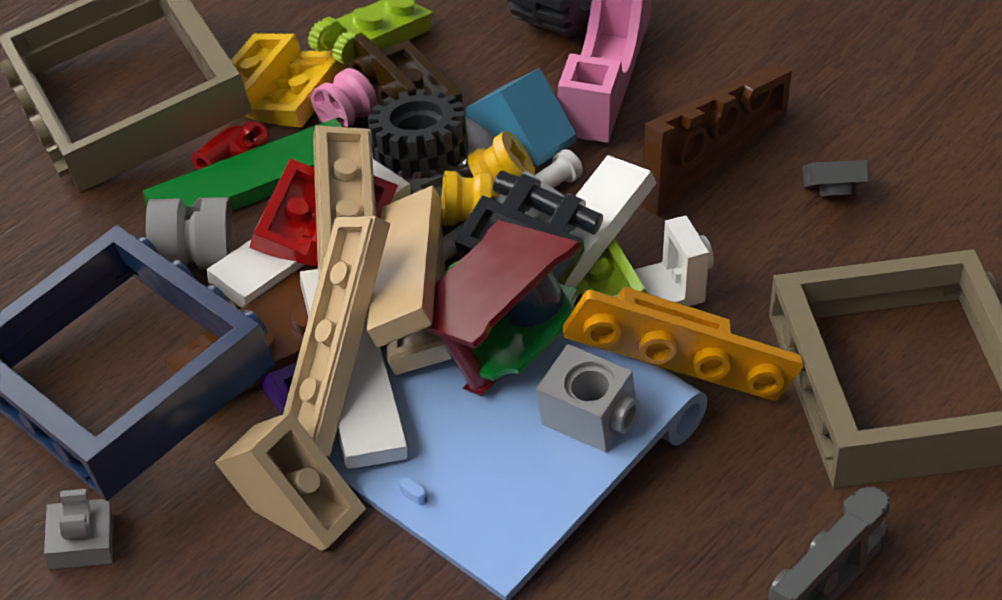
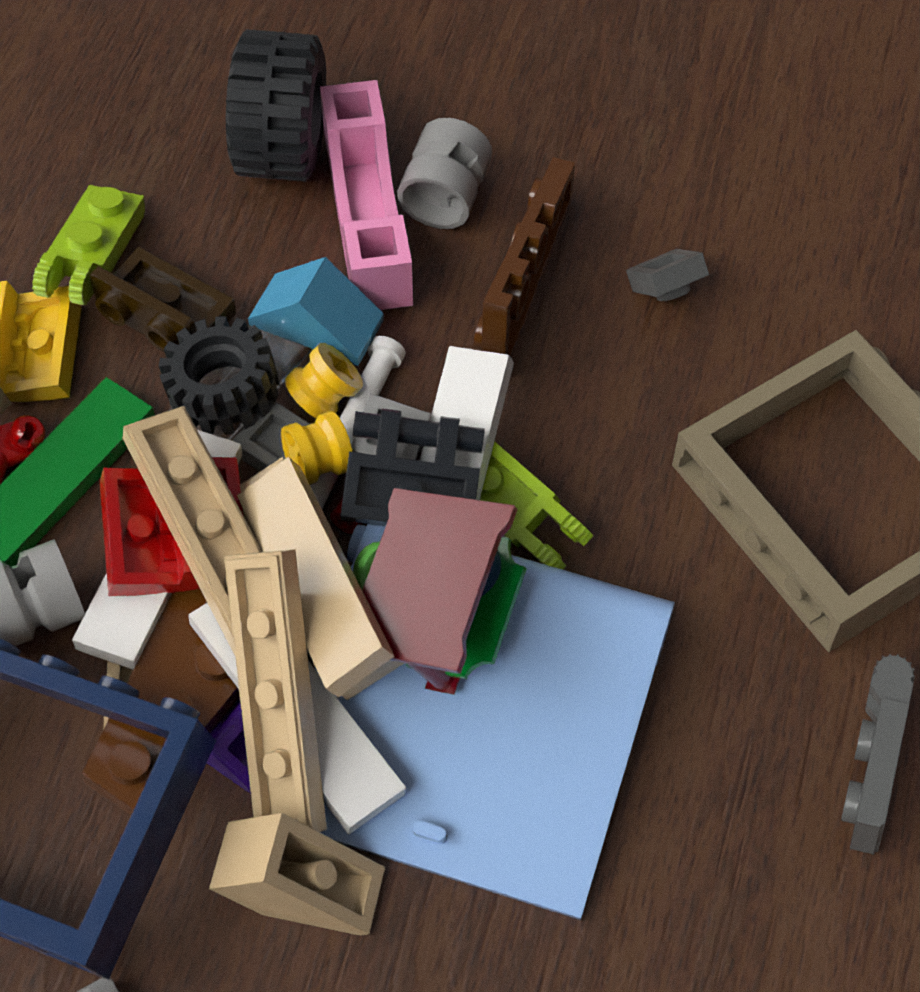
camera: 25 degrees left, 15 degrees up
(345, 99) = (106, 349): bright pink wheel -> none
(585, 377) = (560, 640): light grey brick -> none
(681, 55) = (445, 173): none -> light grey wheel
(681, 341) = (626, 547): light orange bracket -> none
(684, 265) = (573, 452): white bracket -> none

